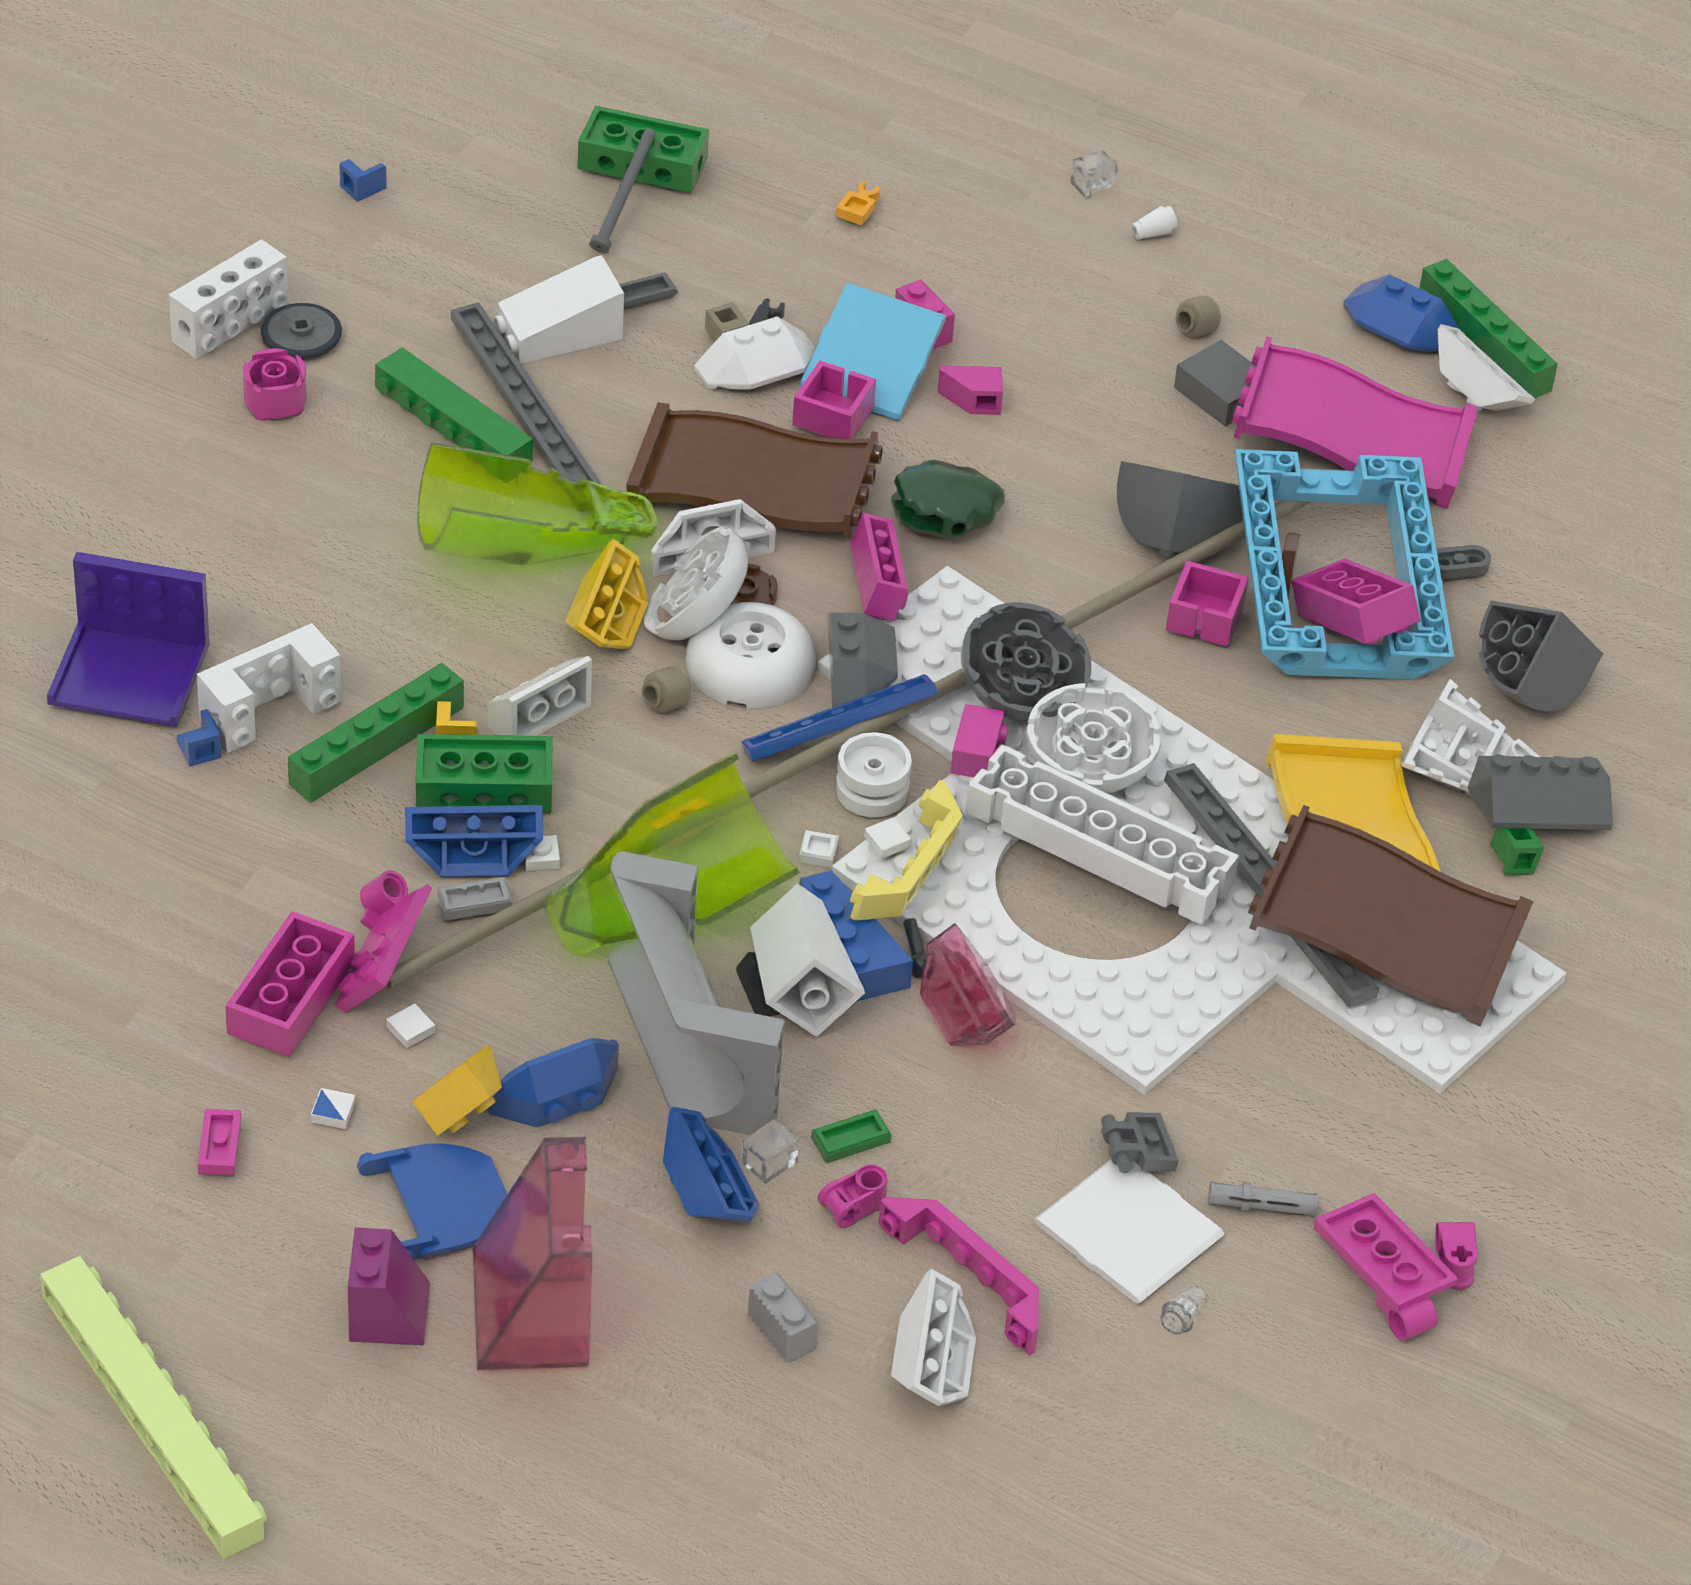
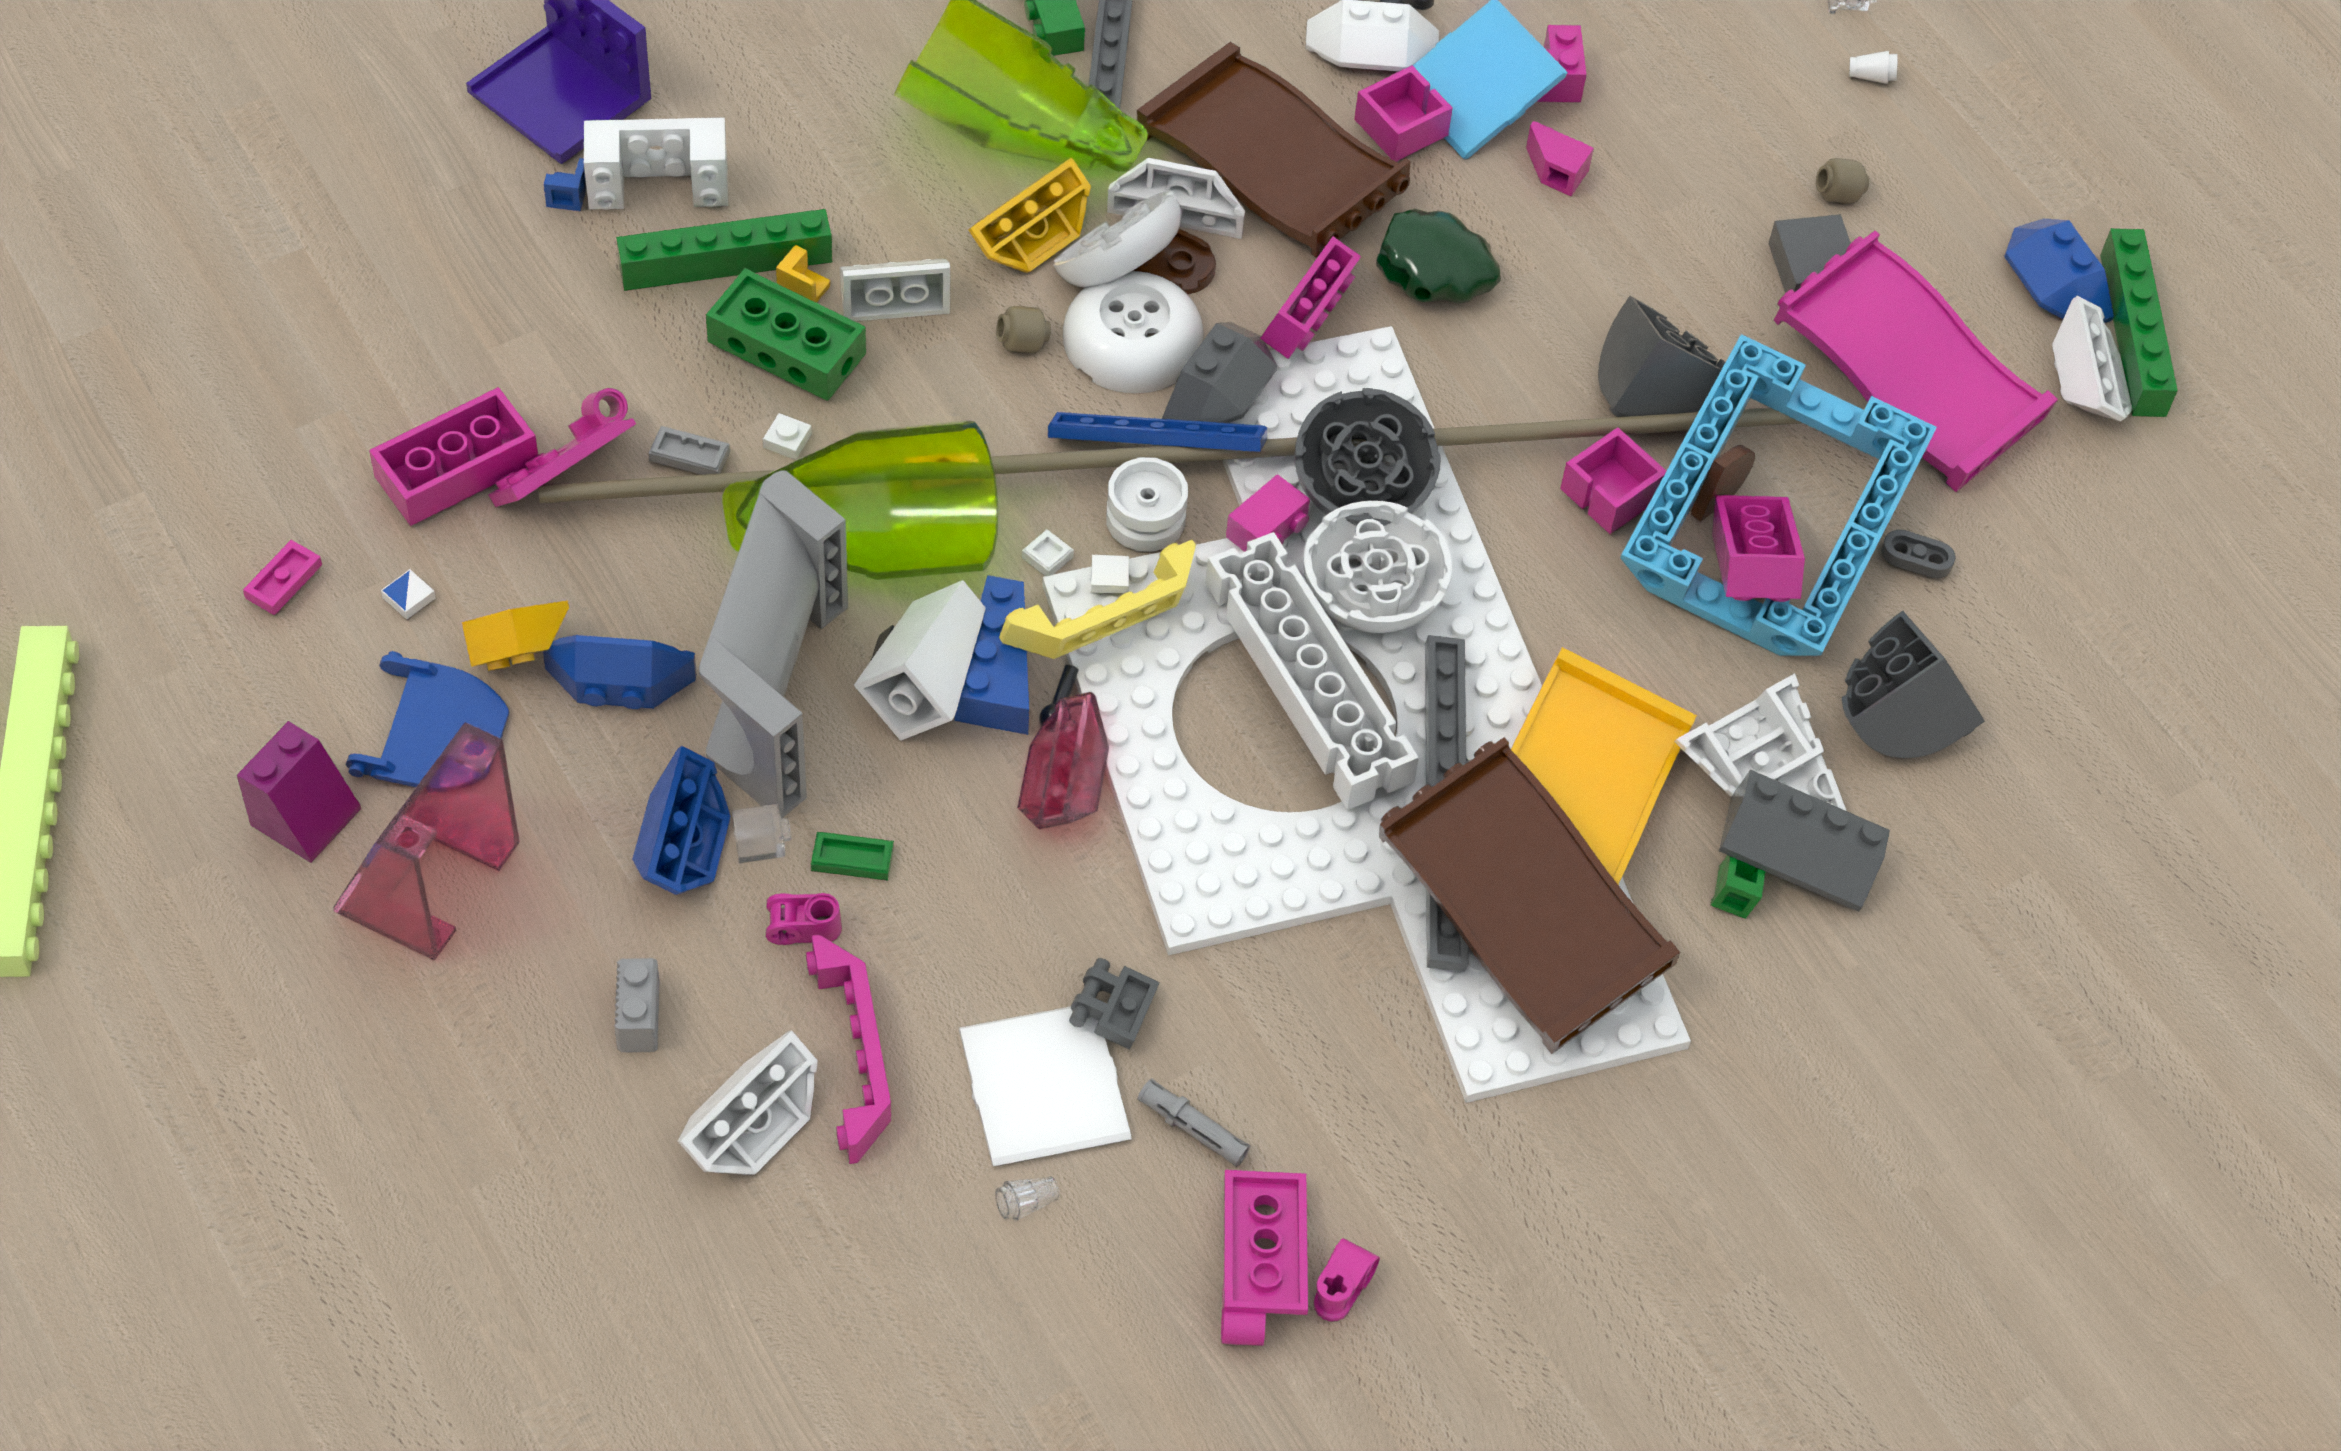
camera: 30 degrees right, 10 degrees up
(410, 1026) = (538, 548): white tile -> none
(474, 838) = (724, 393): blue wedge -> none

